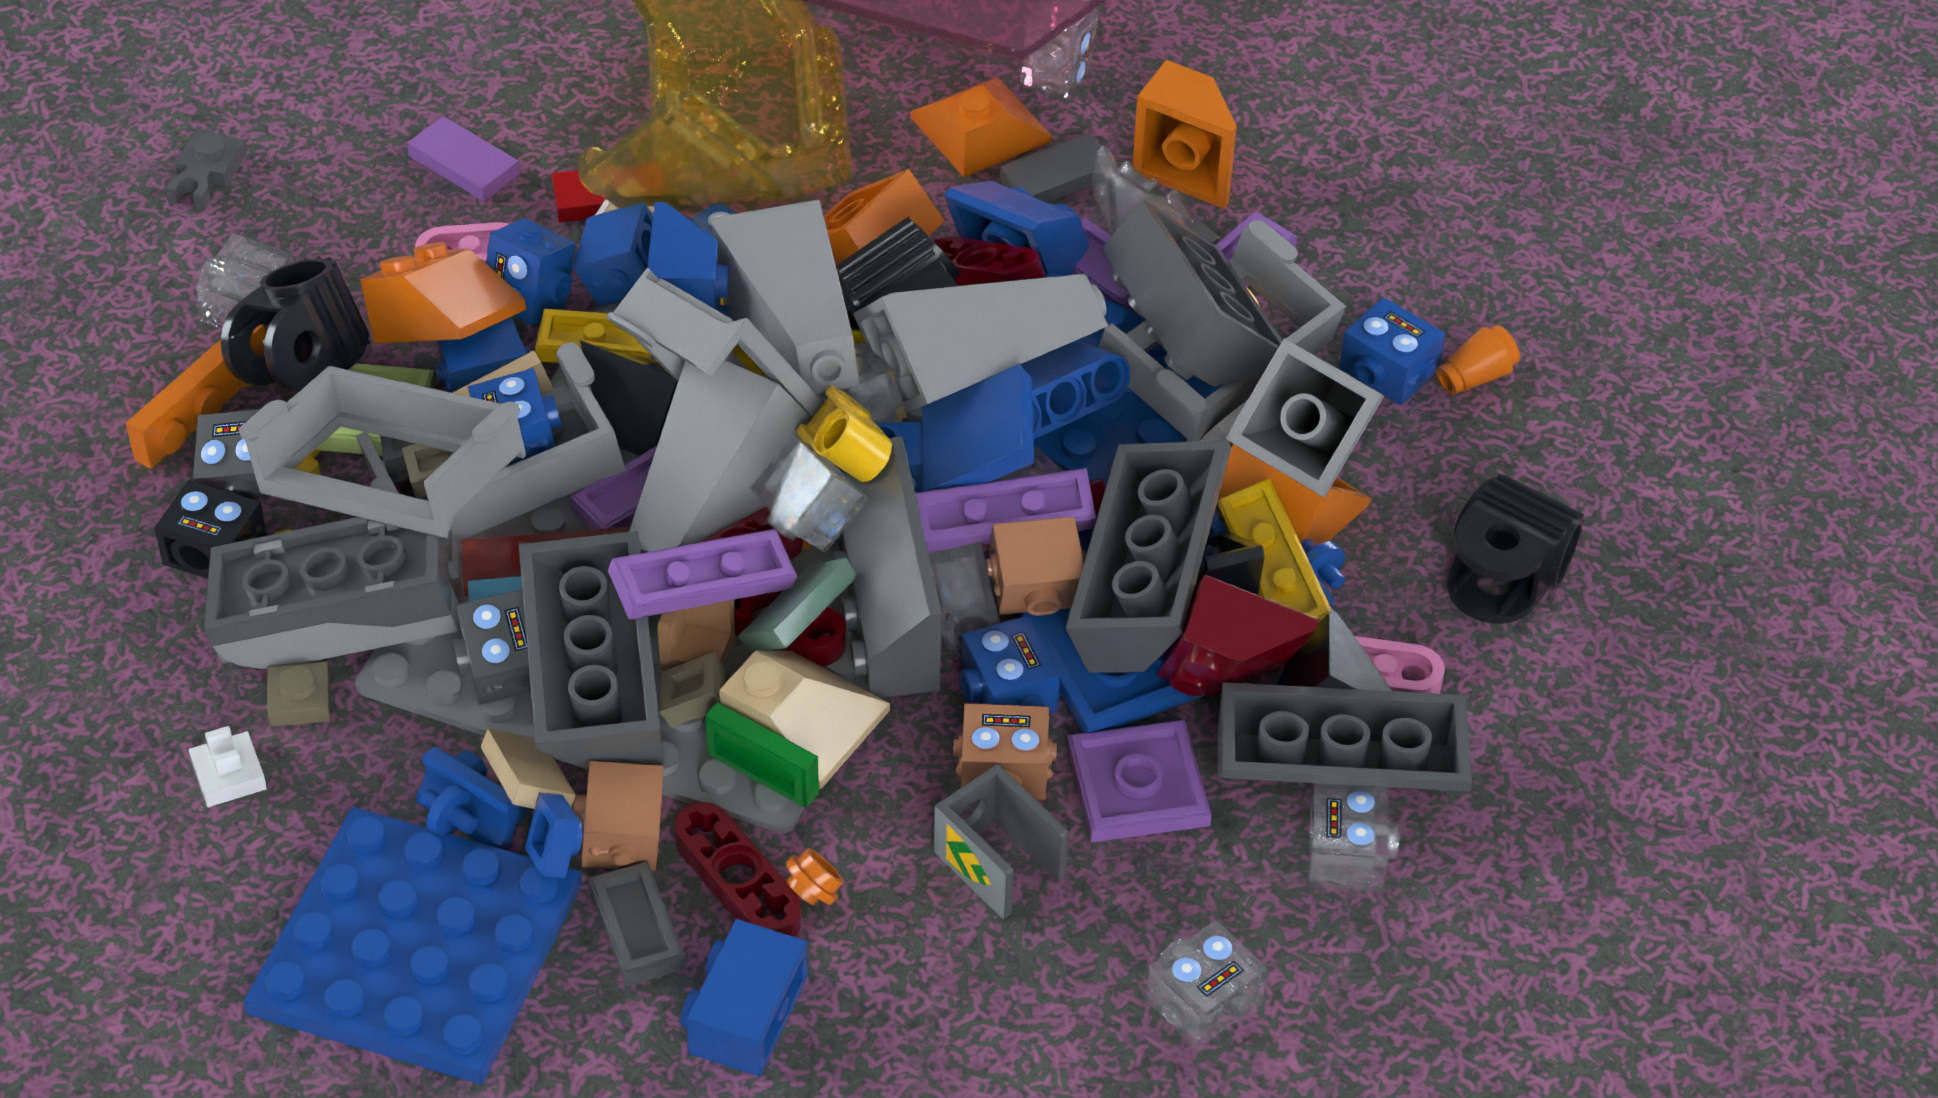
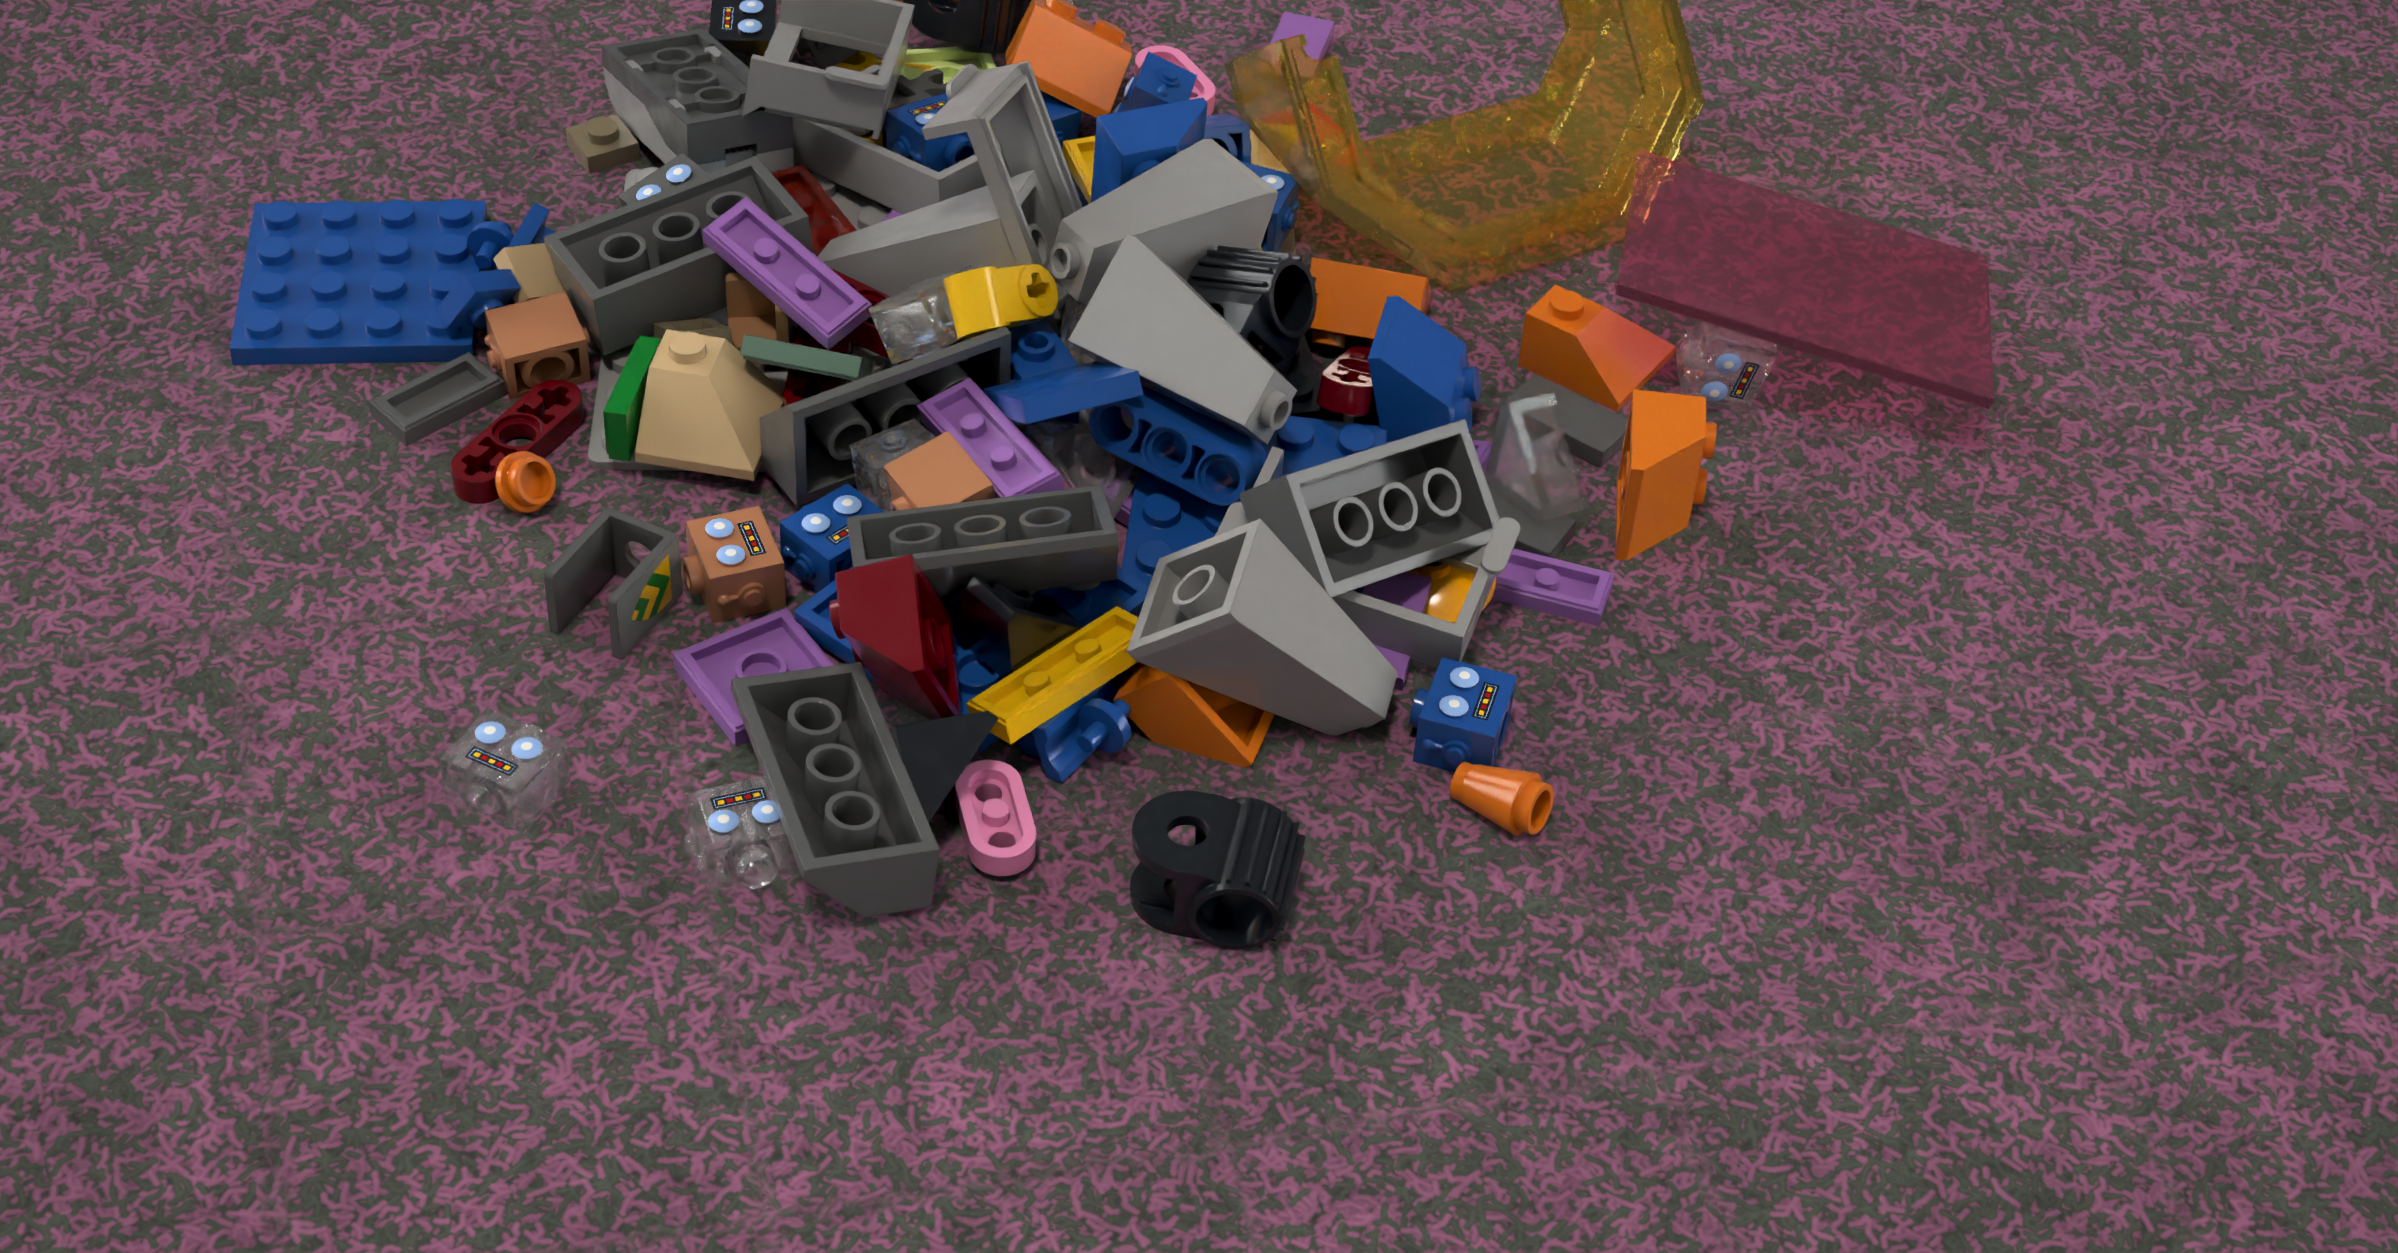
camera: 65 degrees right, 5 degrees down
(227, 766) = (502, 128): white tile -> none
(745, 997) = (366, 475): blue brick -> none

